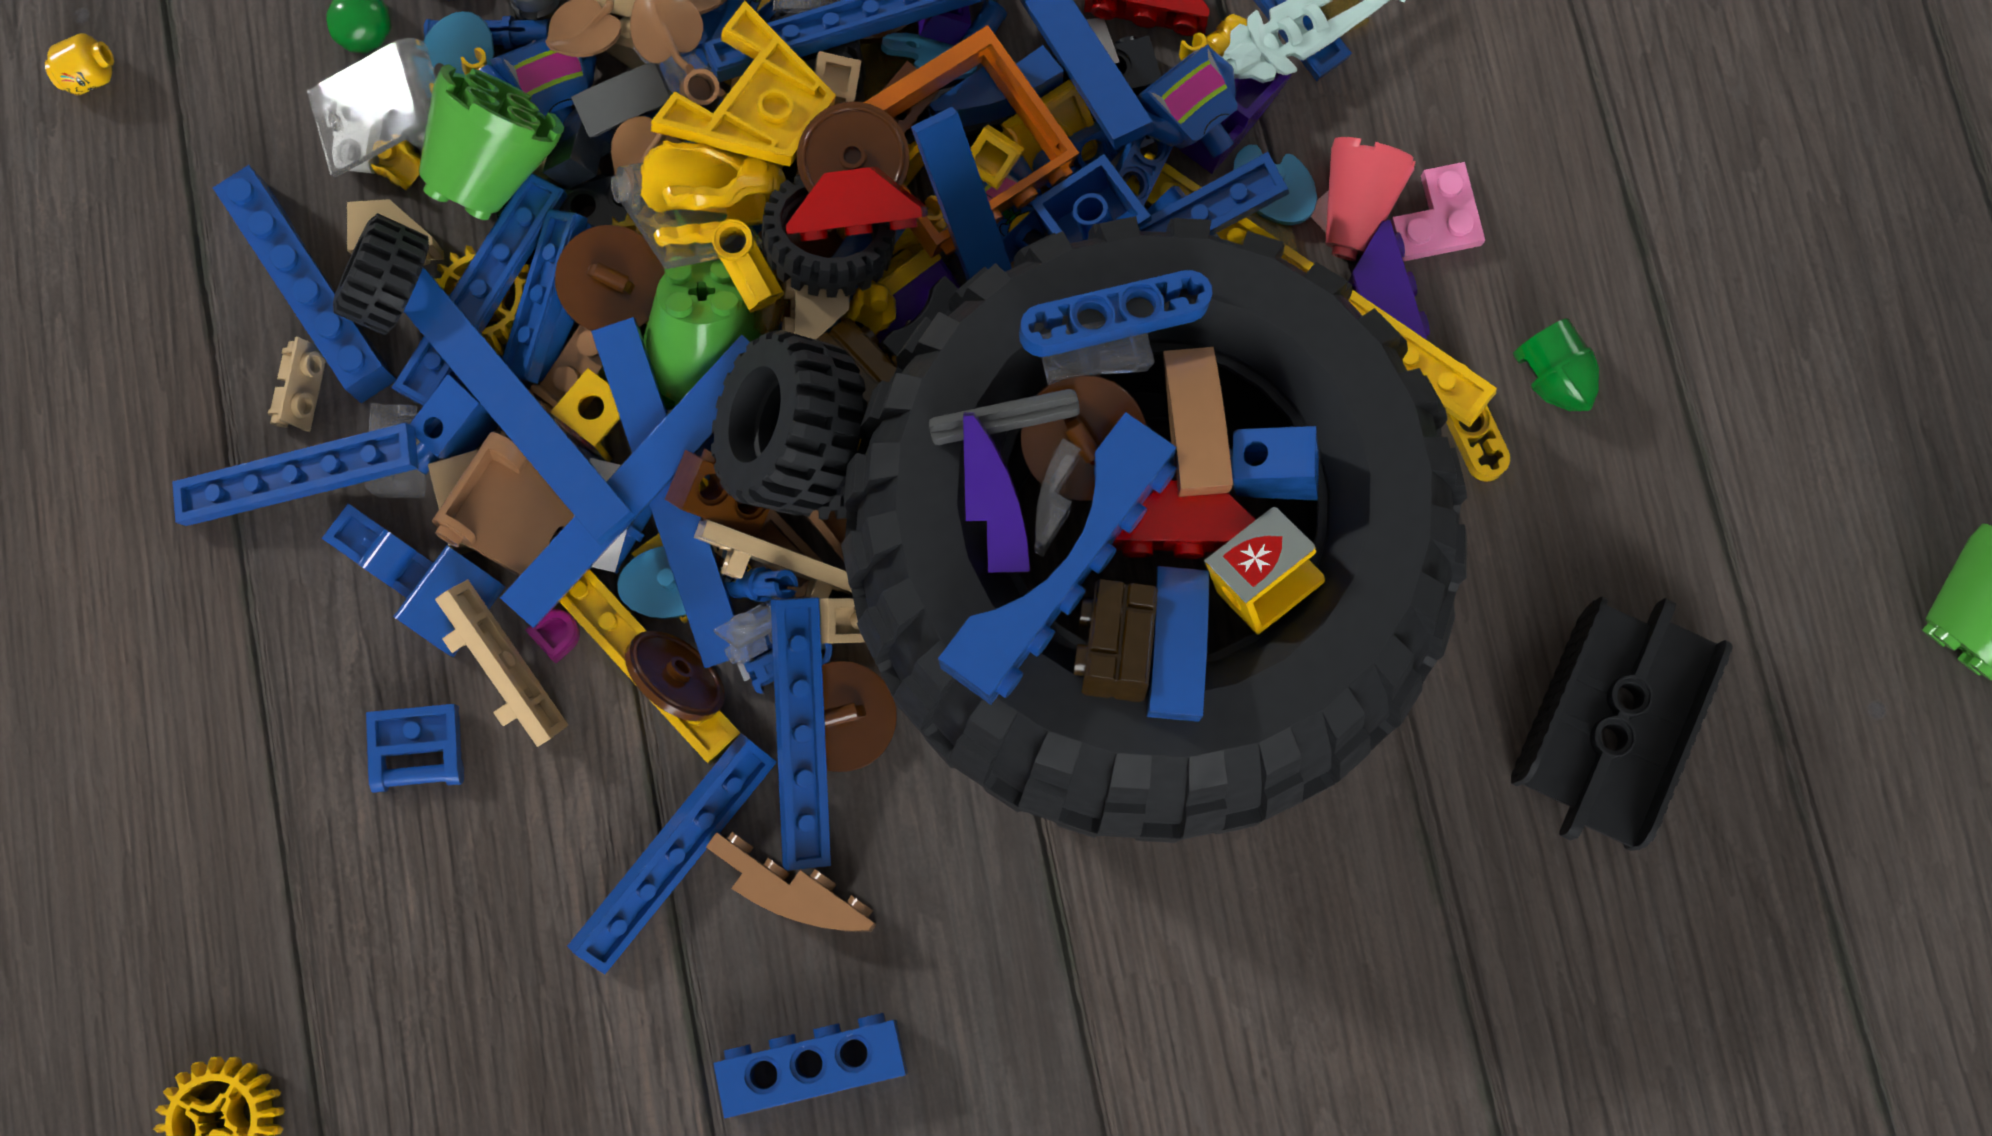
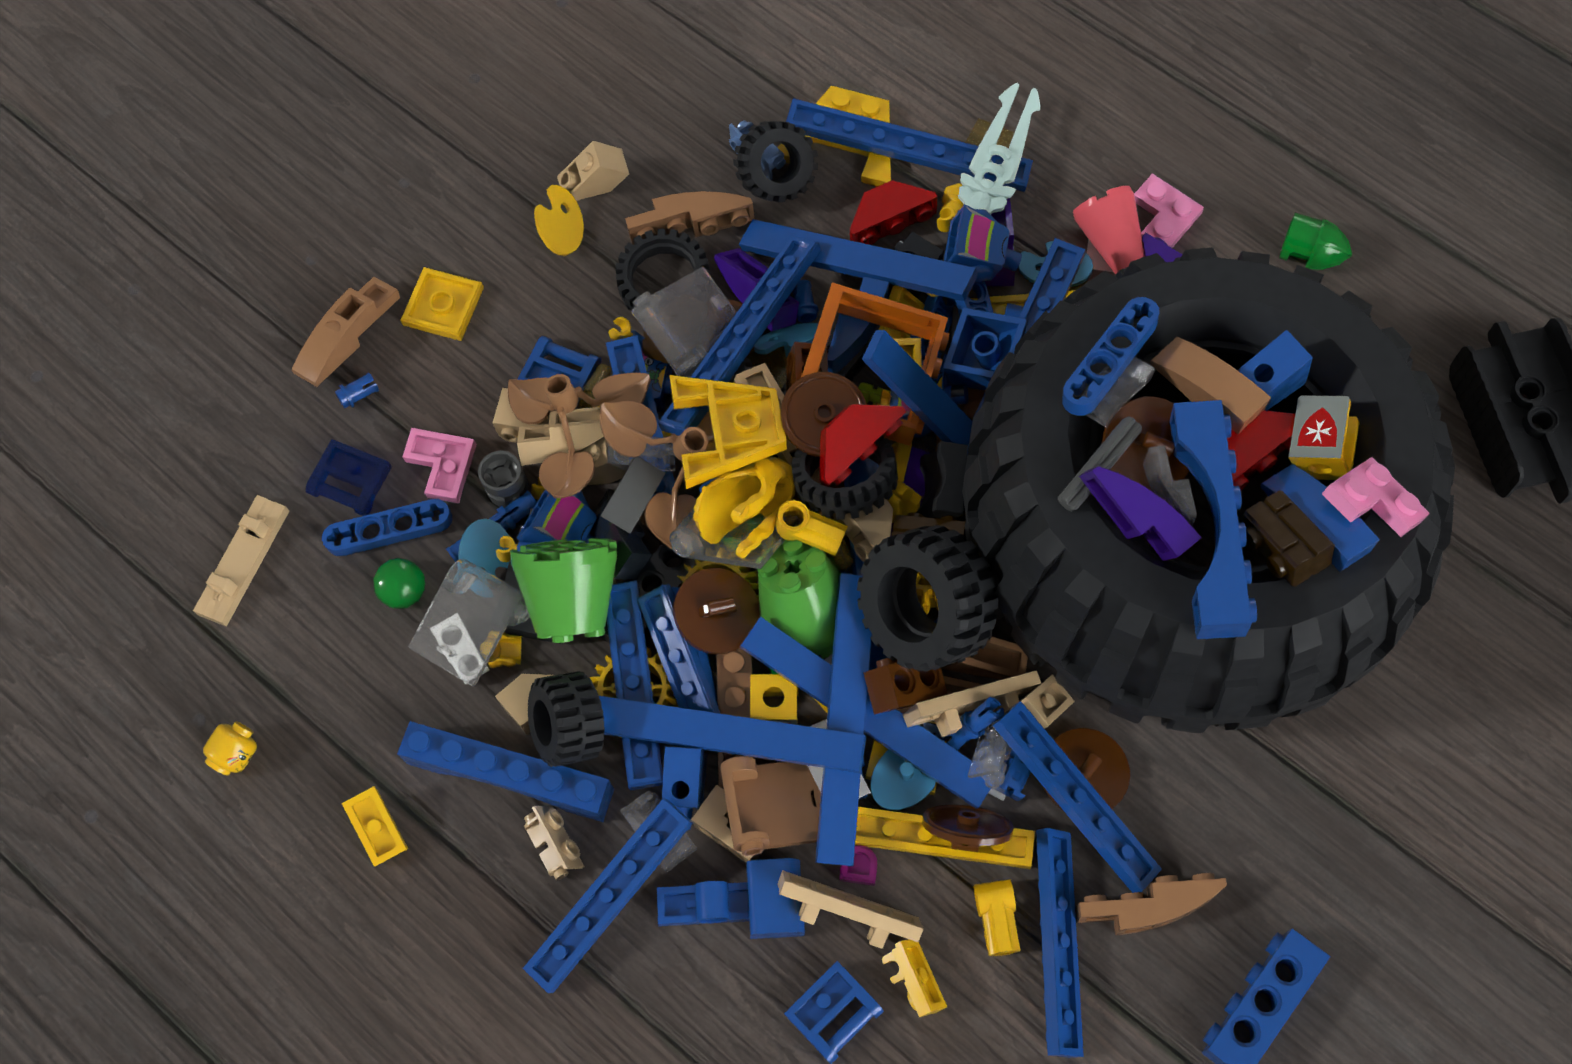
camera: 35 degrees left, 10 degrees down
(147, 242) = (374, 826): none -> yellow plate
(514, 779) = (919, 980): none -> yellow plate
(644, 772) = (997, 906): none -> yellow piece
(1256, 664) = (1374, 488): none -> bright pink plate

